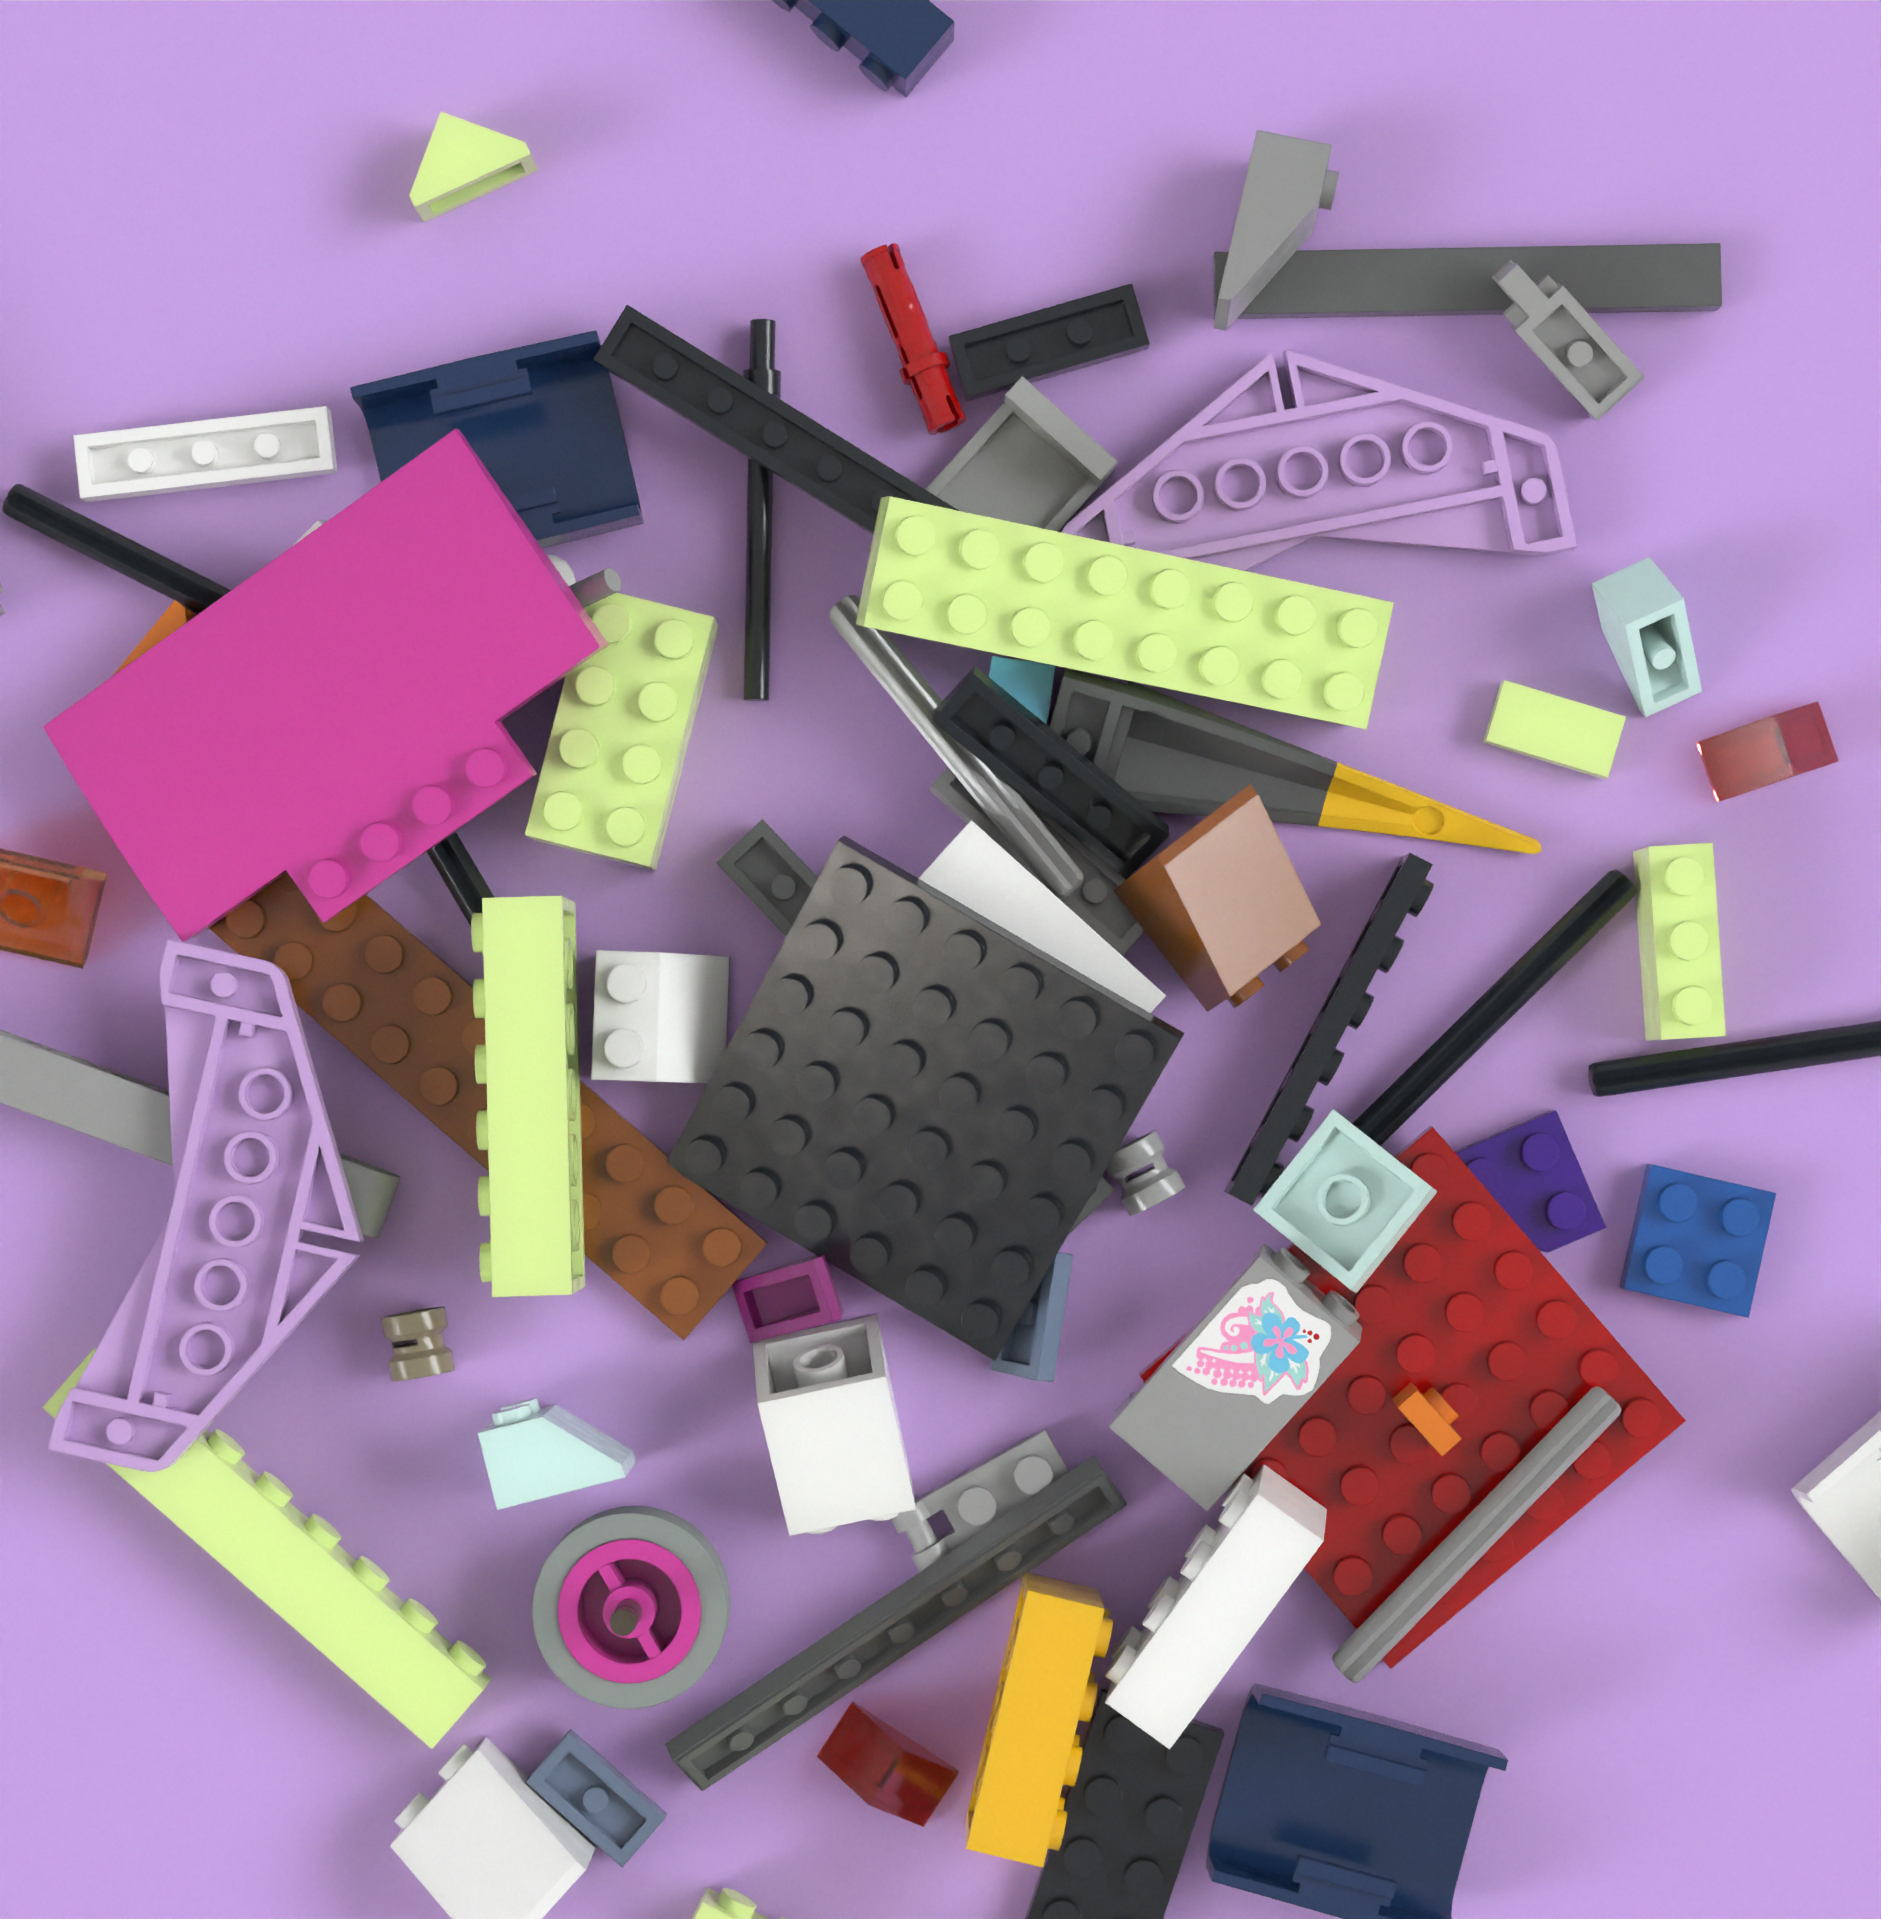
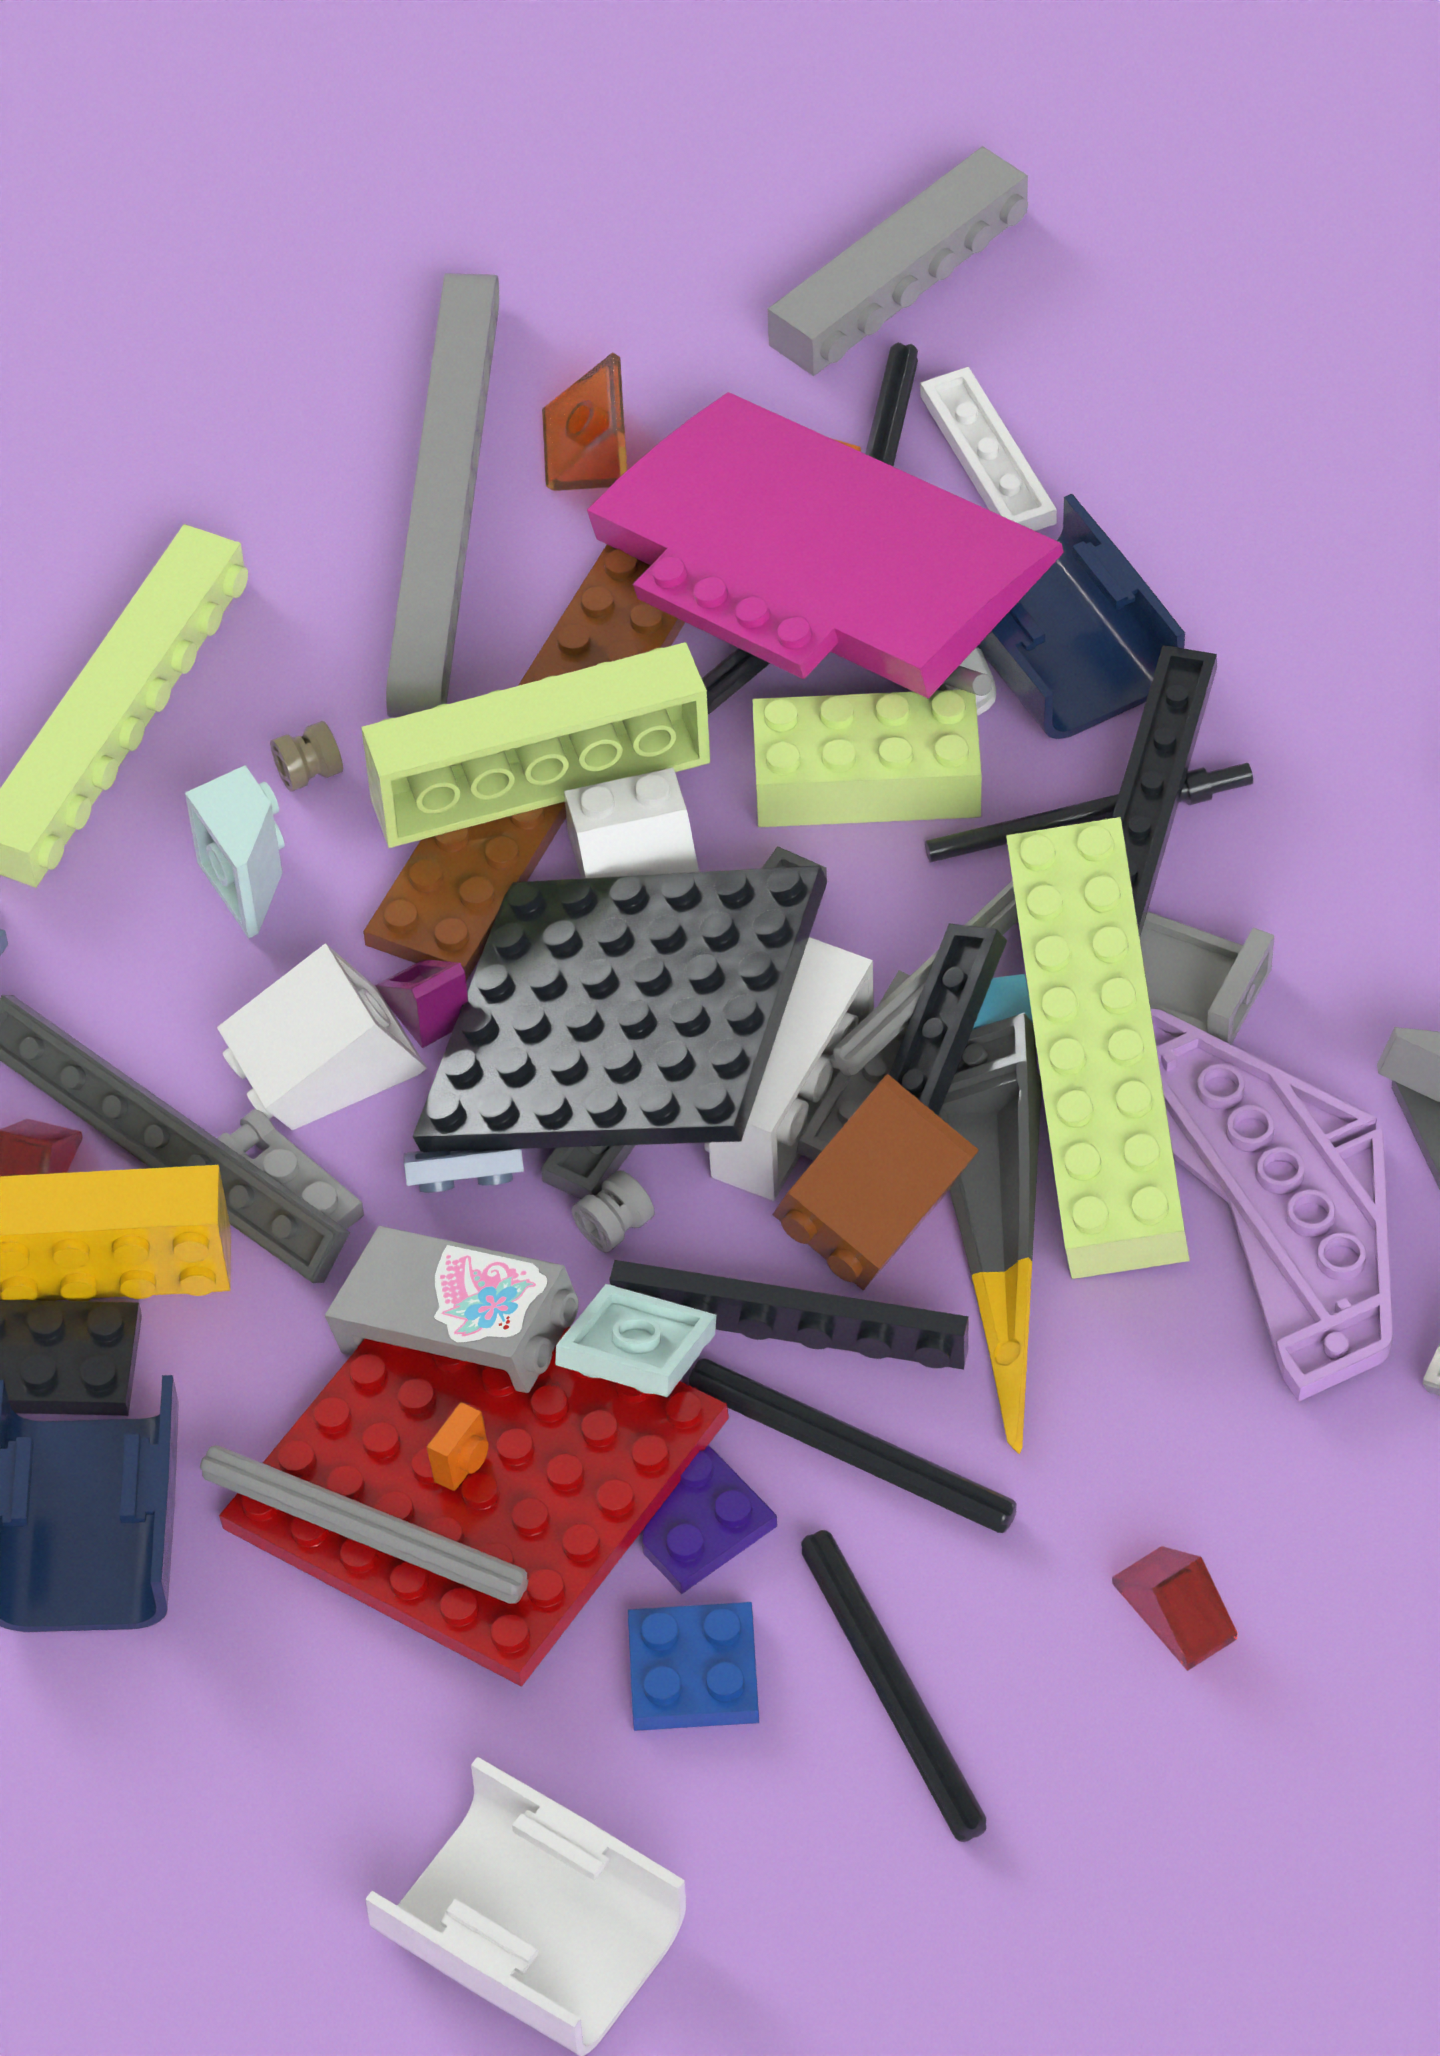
camera: 80 degrees right, 35 degrees down
(231, 1261) = (342, 599): lavender wing -> none
(466, 164) = (1286, 546): yellowish green slope -> none
(631, 1607) = (125, 943): wheel -> none
(922, 362) = (1261, 884): red pin -> none
(1049, 342) = (1319, 967): black plate -> none
(1216, 1605) = (243, 1329): white brick -> none
(1554, 729) = (1127, 1428): yellowish green tile -> none
(1648, 635) = (1239, 1467): light aqua slope -> none
(1679, 941) = (965, 1561): yellowish green brick -> none

